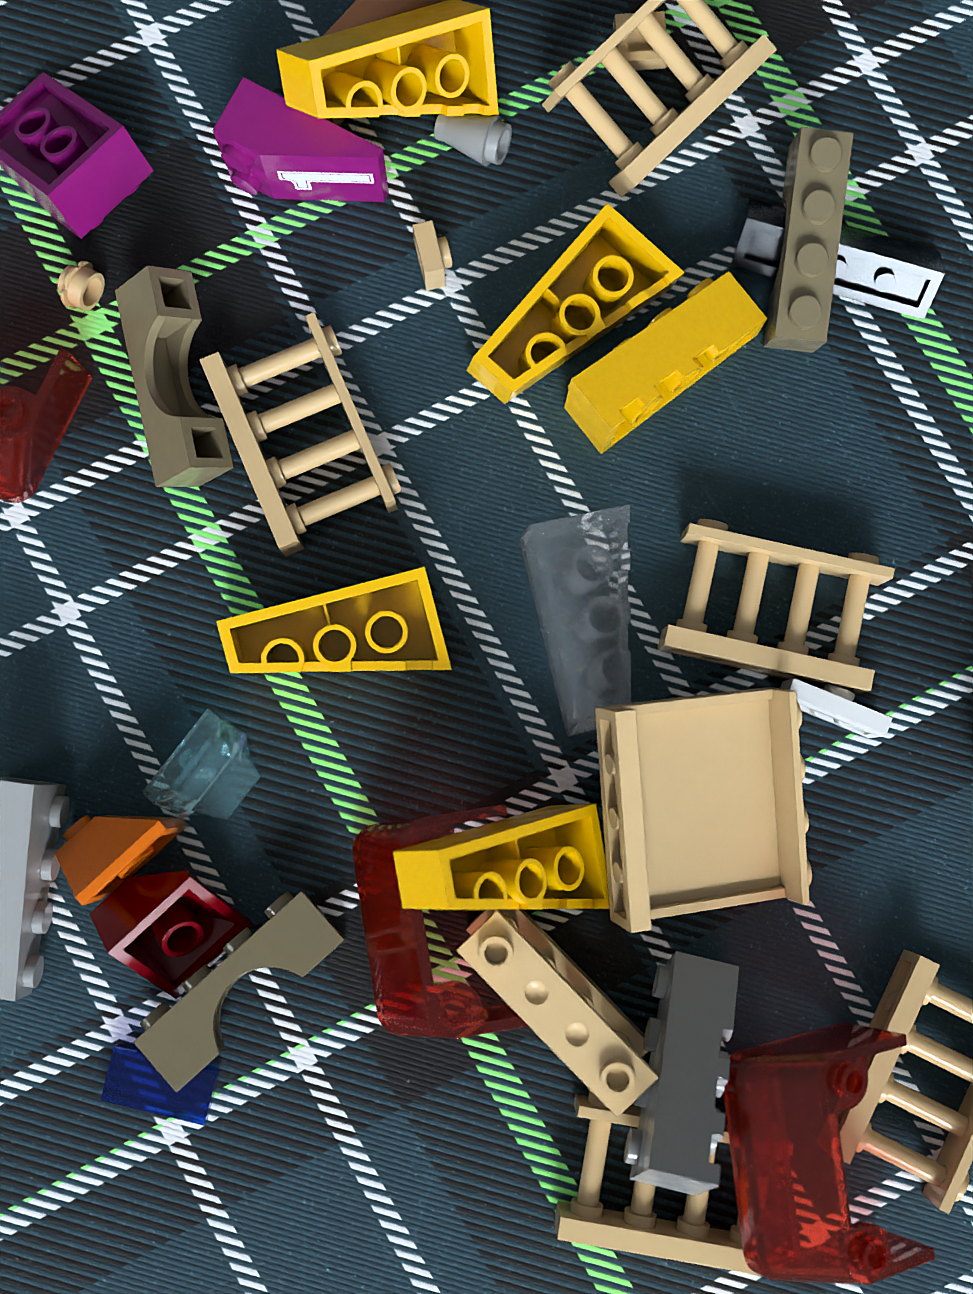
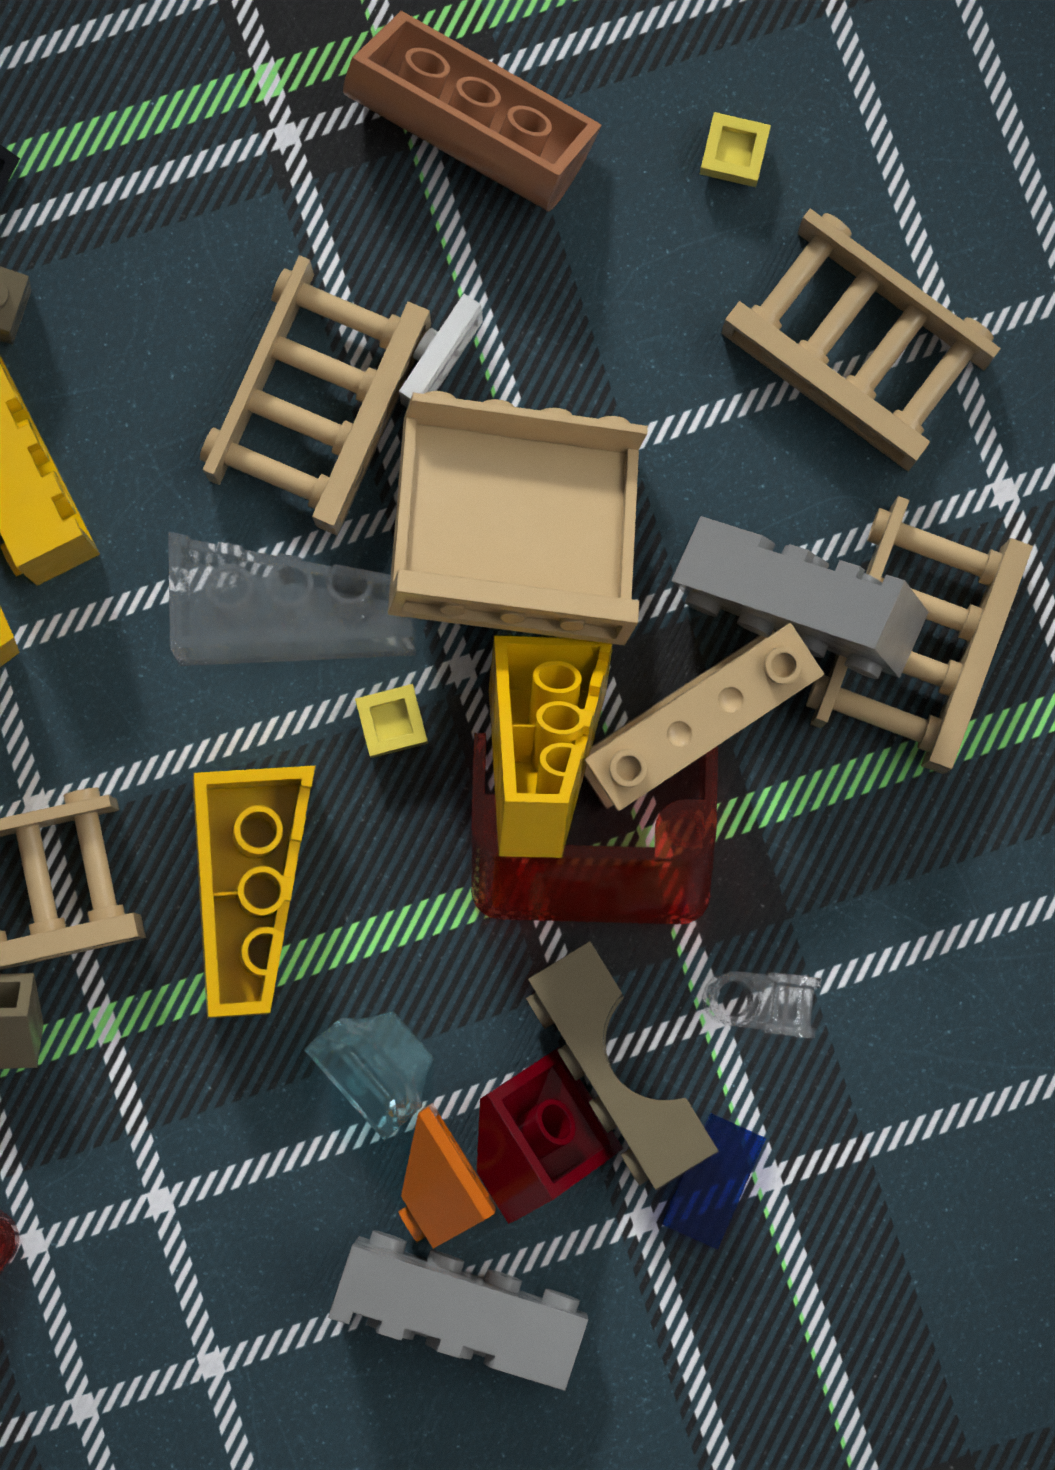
camera: 75 degrees left, 0 degrees up
(321, 1109) = (767, 1002): none -> clear piece
(506, 727) = (391, 721): none -> light yellow plate
(791, 1162) = (911, 501): clear red windscreen -> none

